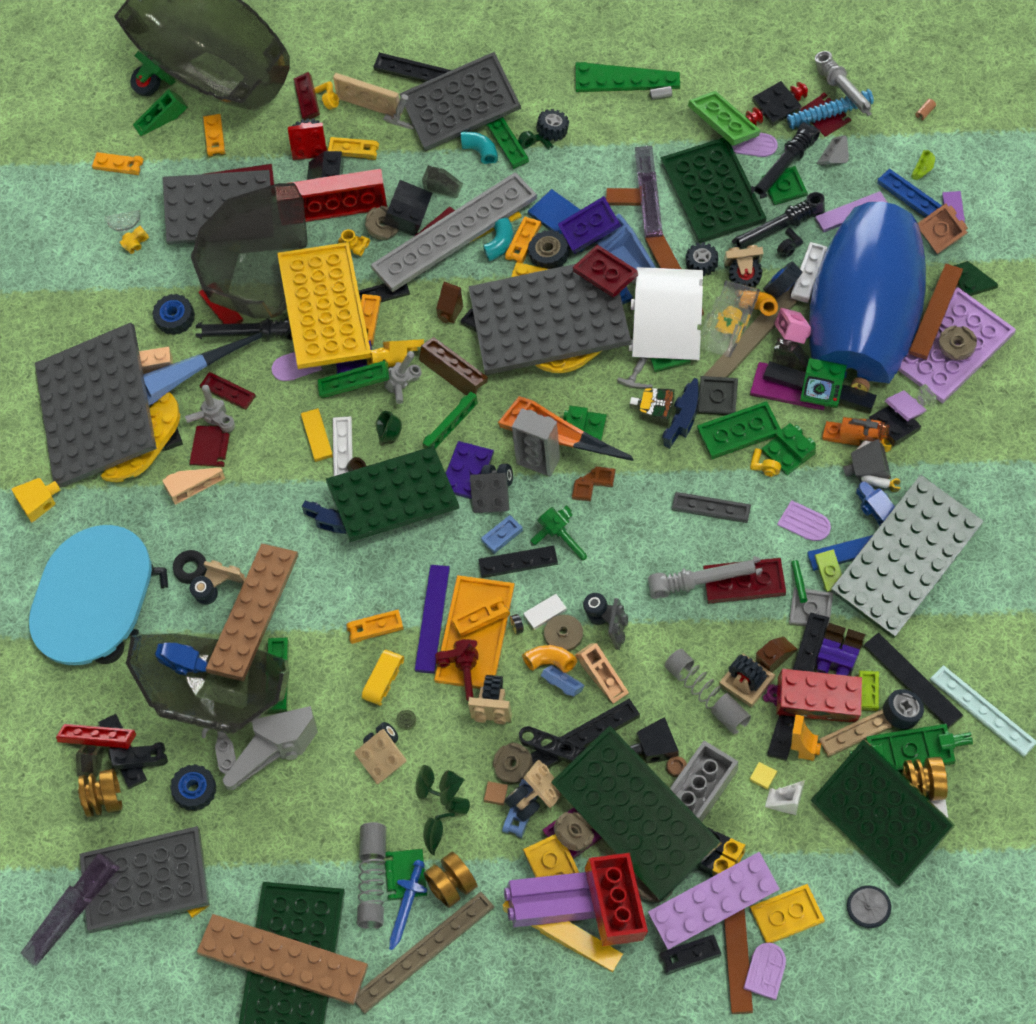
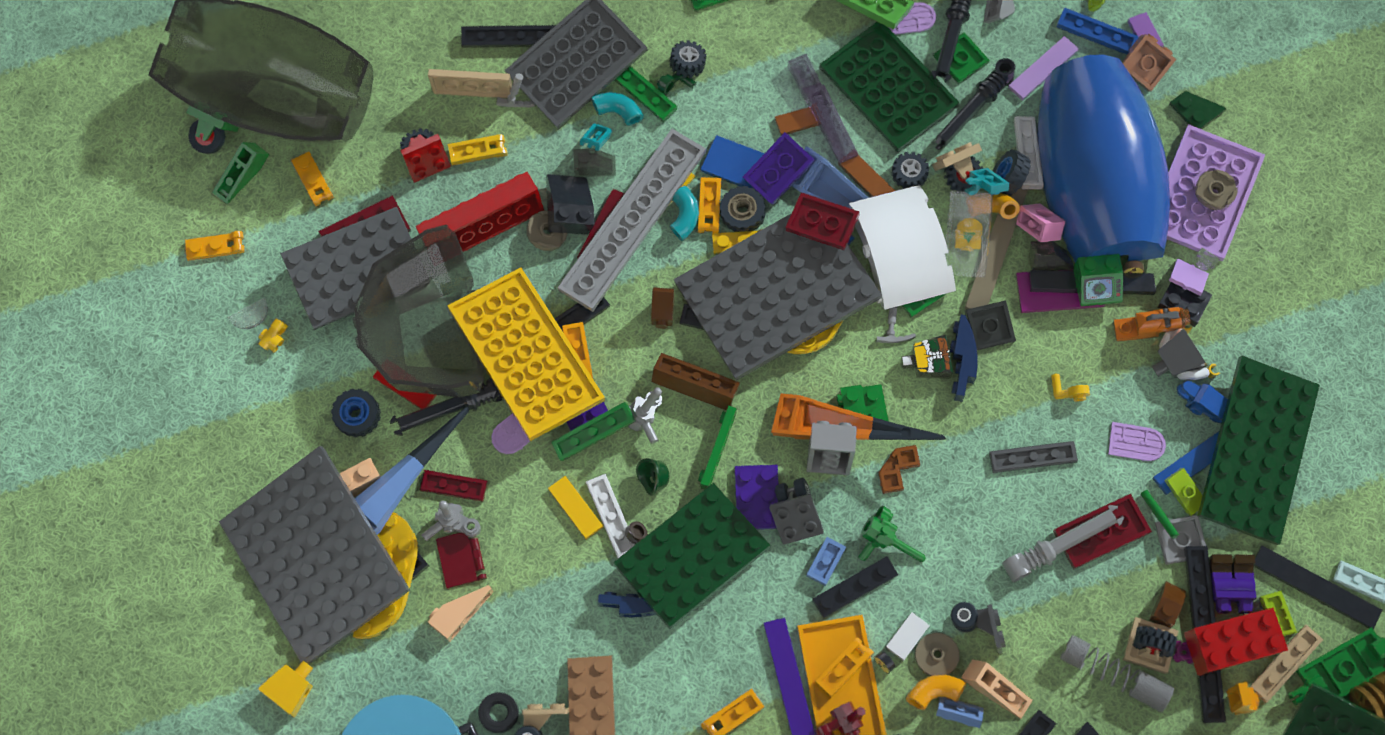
camera: 25 degrees left, 10 degrees up
(306, 96) = (399, 101): dark red tile -> none
(325, 165) = (456, 185): black slope -> none
(329, 98) = (427, 97): yellow plate -> none
(356, 243) = (529, 264): yellow plate -> none
(394, 351) = (625, 384): yellow plate -> none
(449, 163) = (594, 141): none -> teal tile
(738, 430) = (1027, 358): green plate -> none
(758, 279) = (987, 180): none -> teal plate
(788, 246) = (995, 129): black plate -> none
(790, 448) = (1088, 363): green plate -> none
(903, 709) = (1323, 625): black wheel -> none
(936, 311) = (1179, 159): dark orange tile -> none

